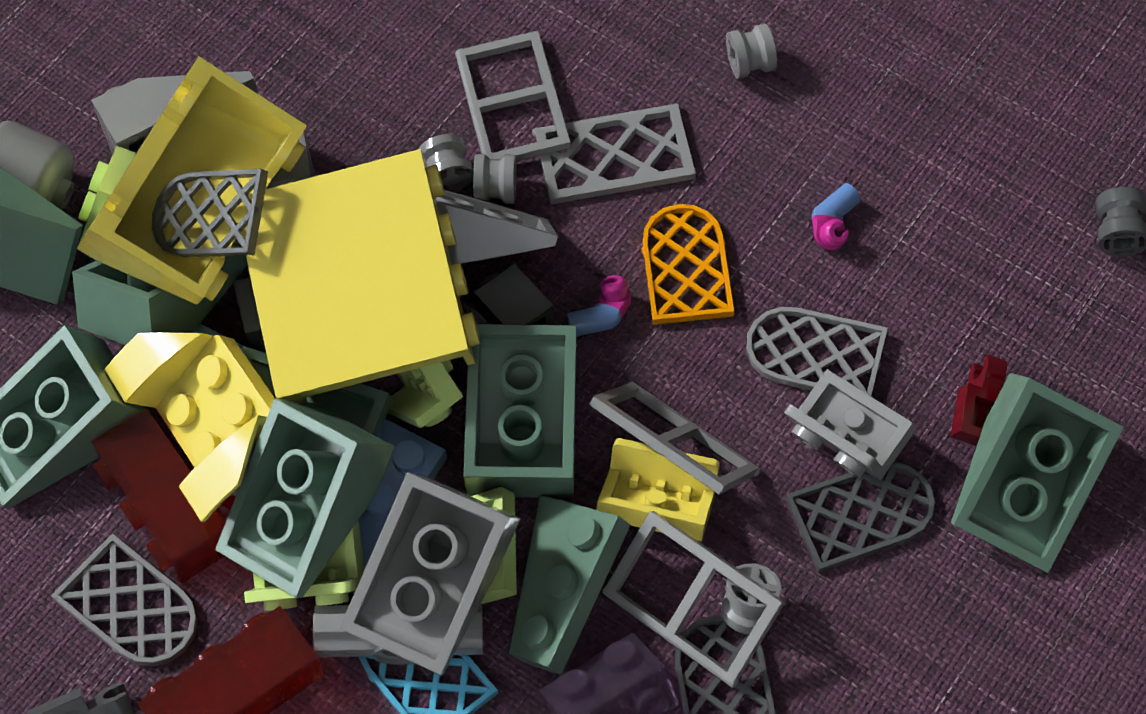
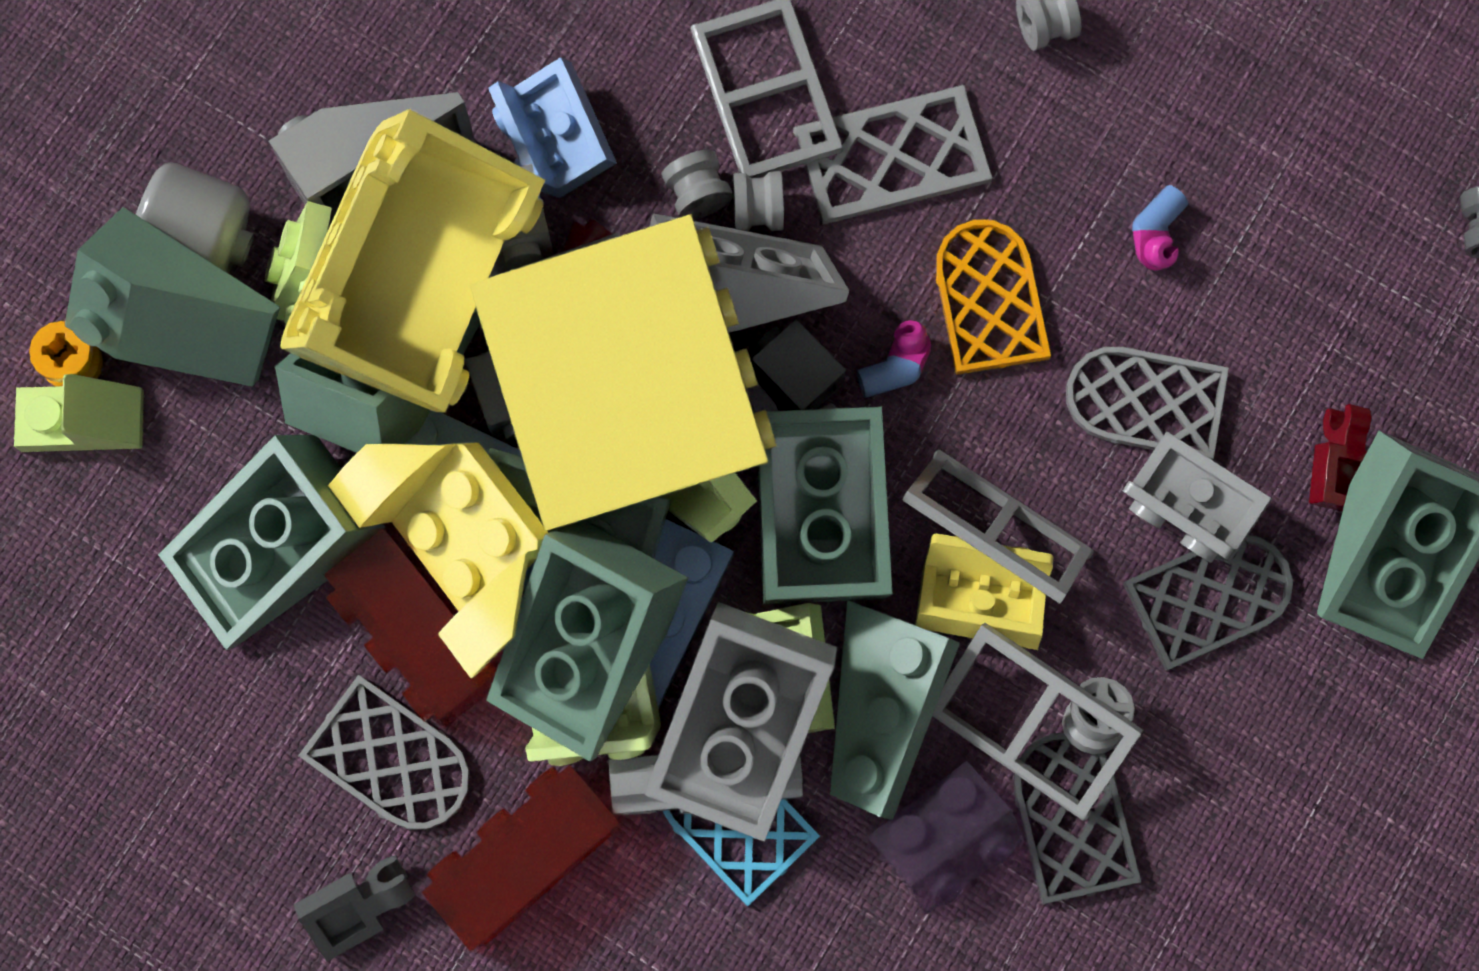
camera: 10 degrees left, 15 degrees up
(252, 218) = (497, 300): dark grey window -> none
(335, 117) = (553, 127): none -> light blue bracket

